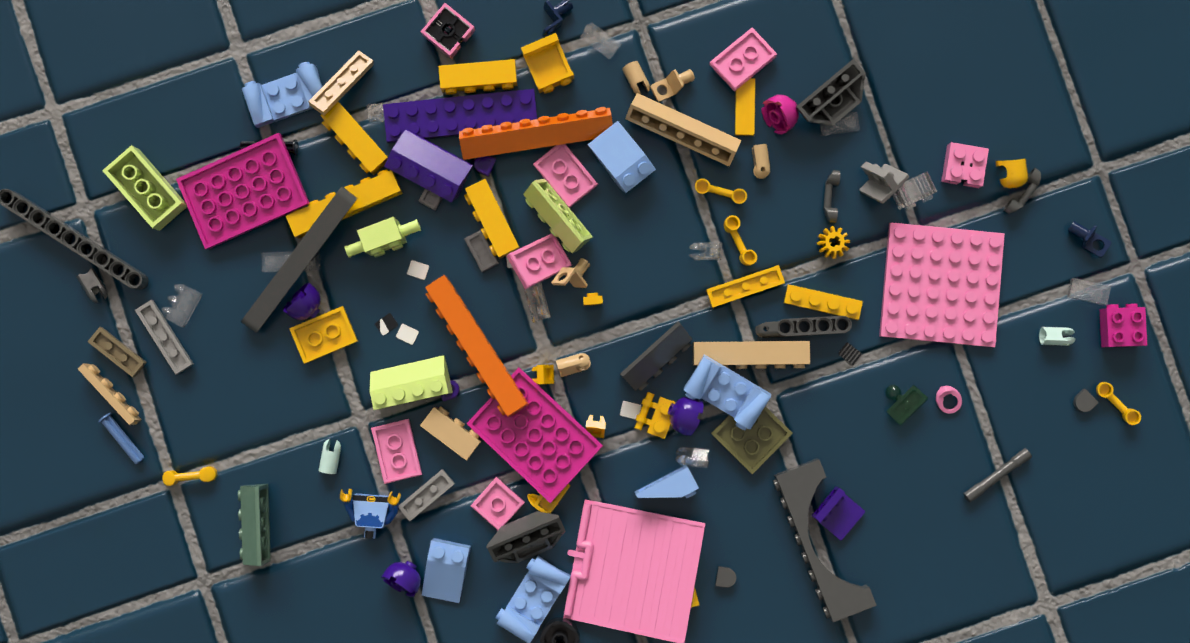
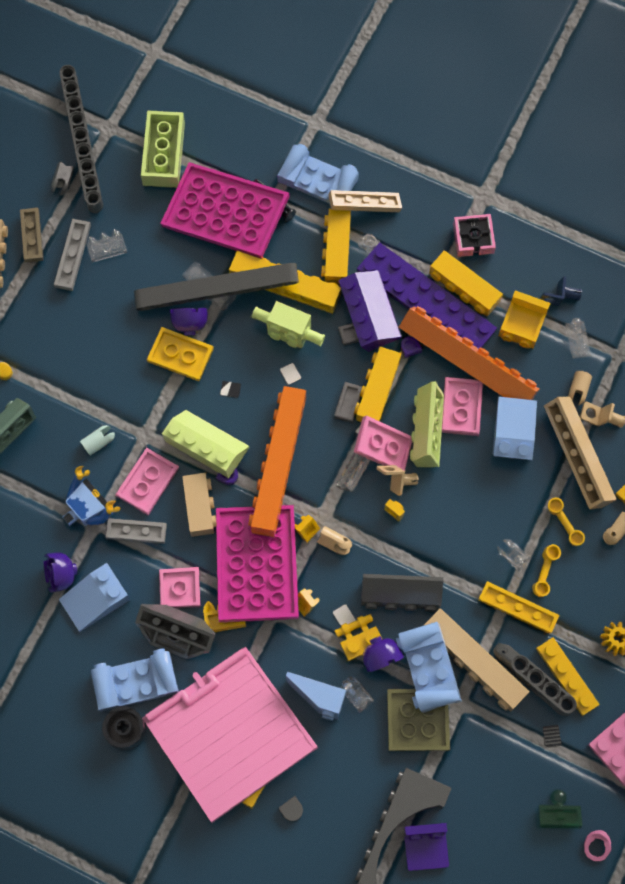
camera: 45 degrees right, 15 degrees down
(407, 334) = (238, 409): white sticker -> none

